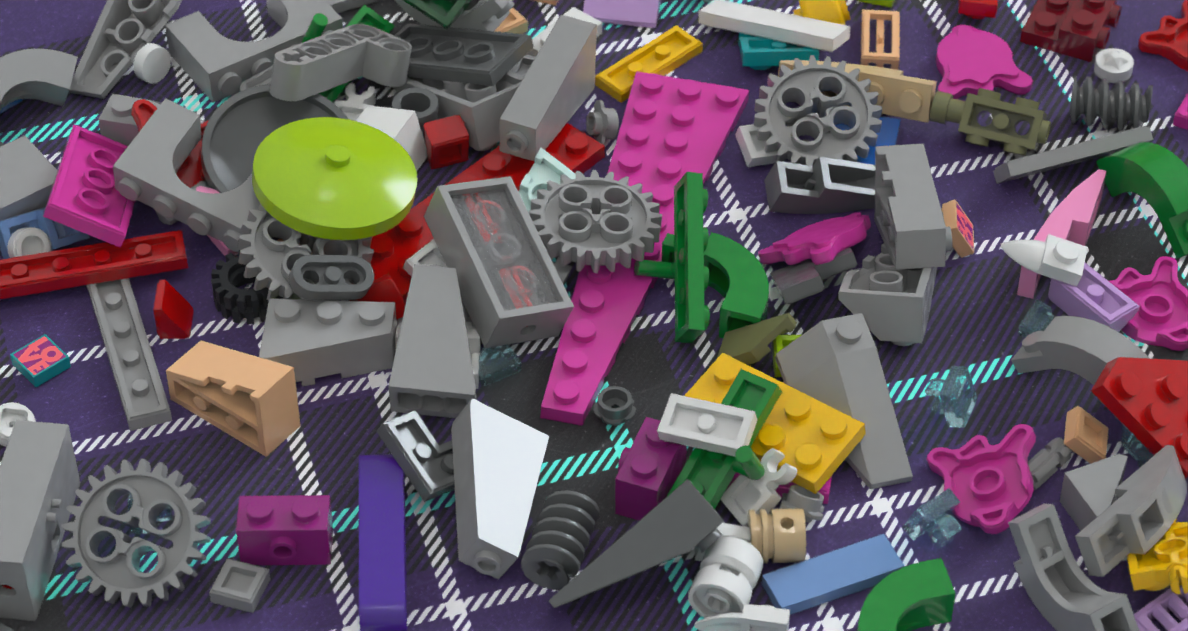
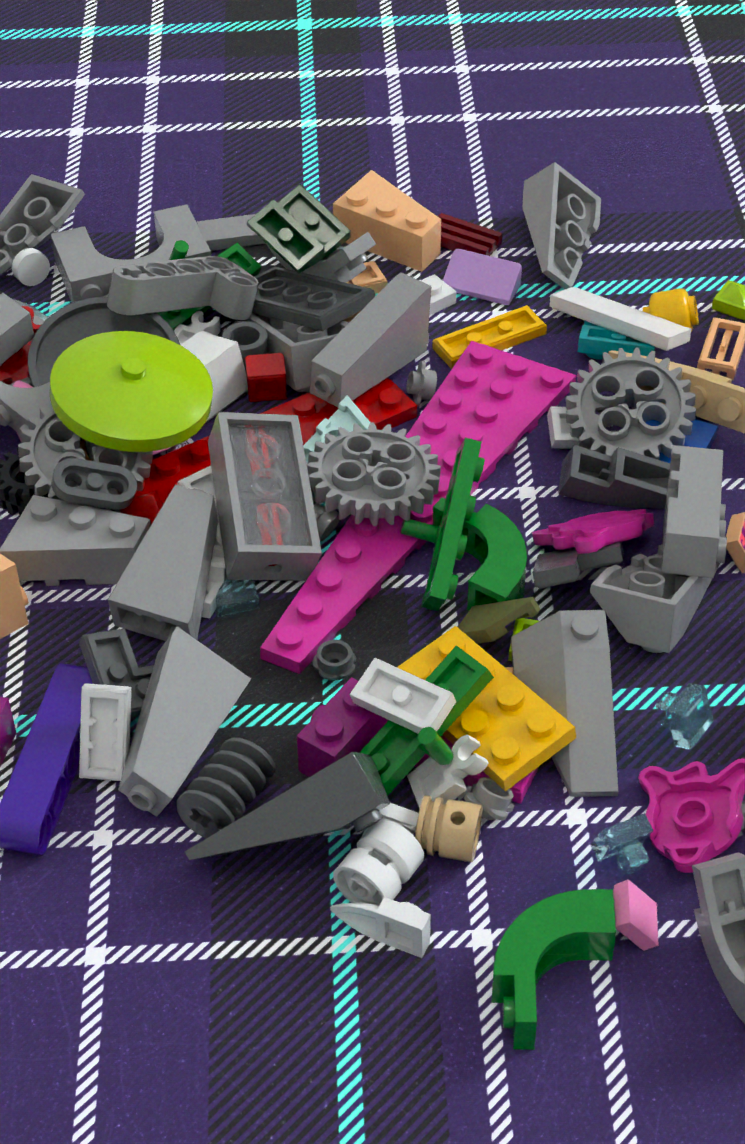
camera: 15 degrees right, 0 degrees up
(431, 509) = (104, 731): none -> white plate
(831, 575) = (496, 882): medium blue tile -> none
(964, 577) = (635, 915): none -> bright pink tile

